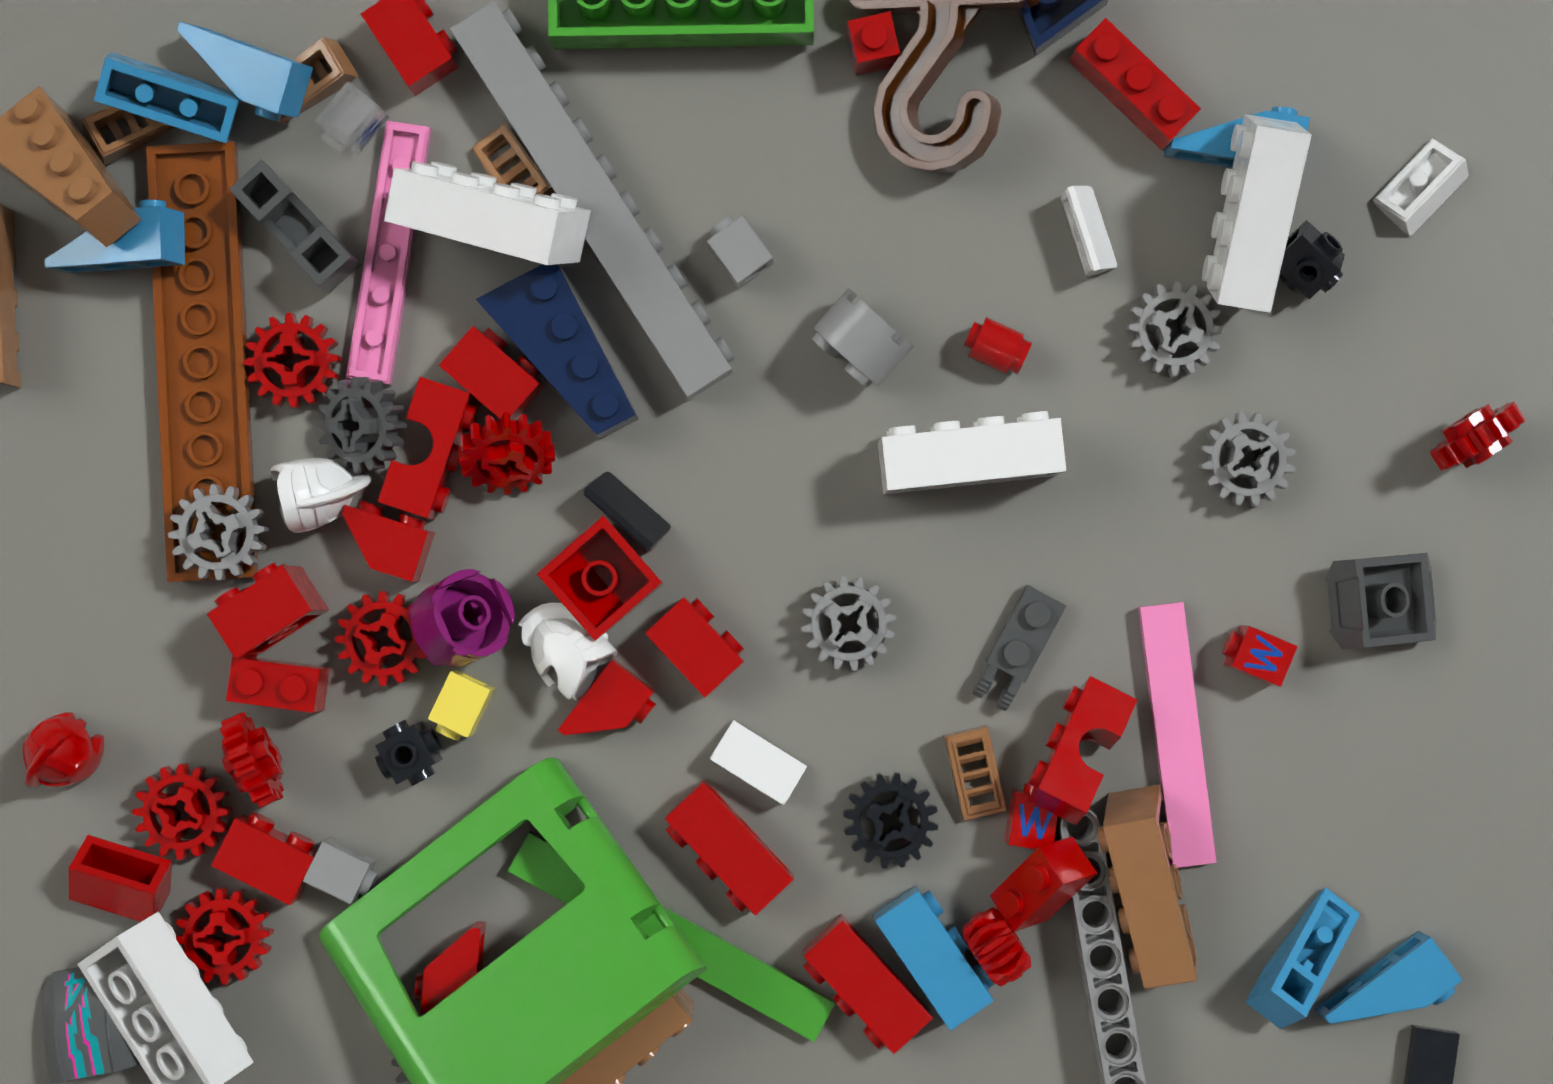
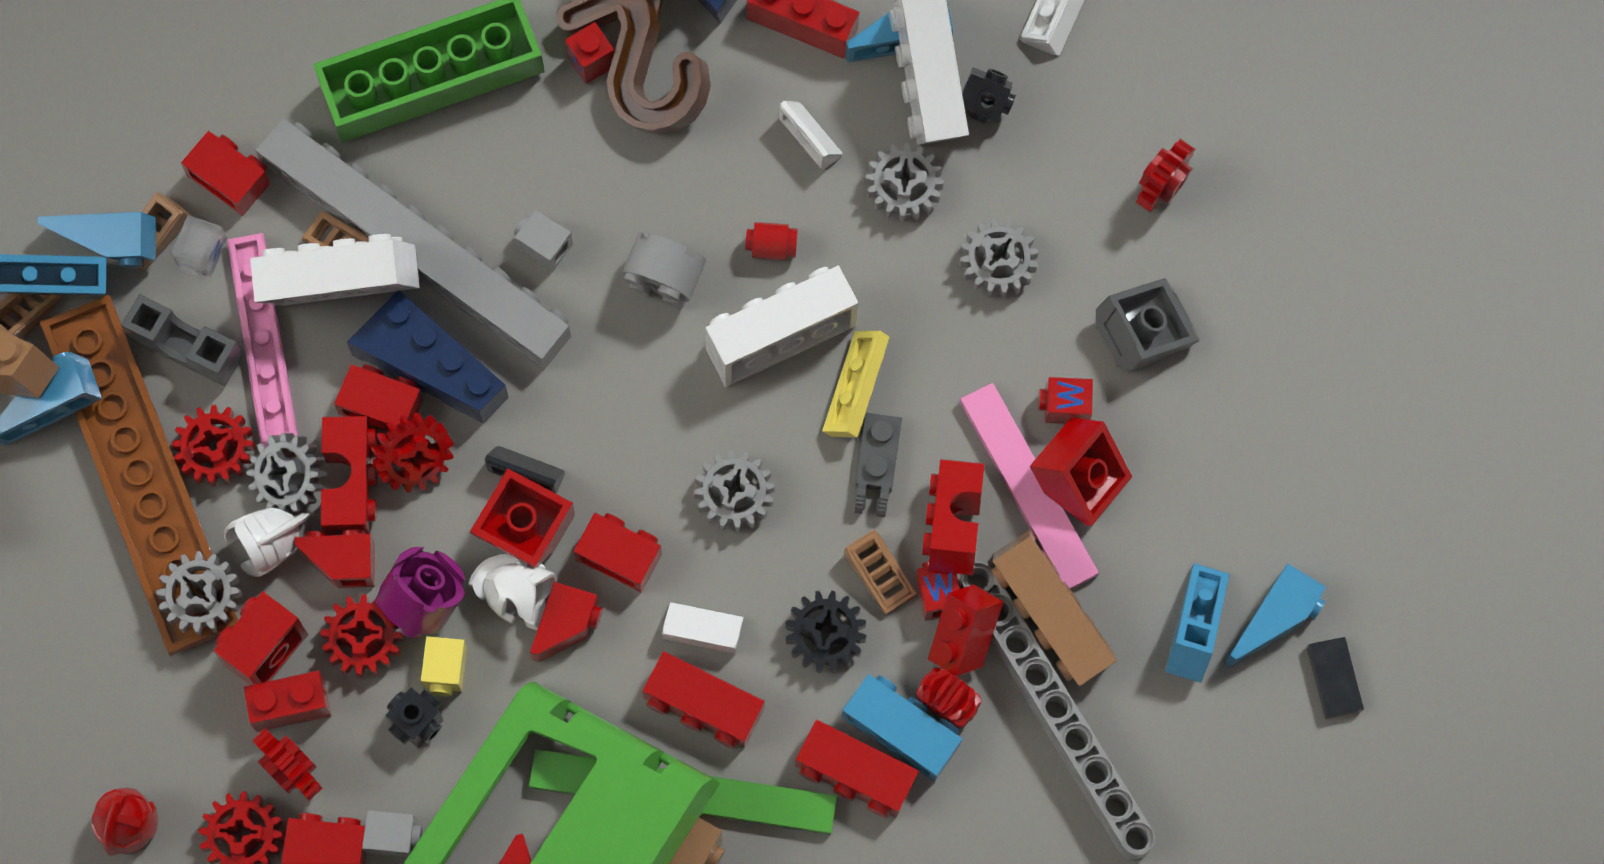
camera: 25 degrees left, 15 degrees down
(1029, 548) = (856, 384): none -> light yellow plate
(1243, 741) = (1082, 469): none -> red slope

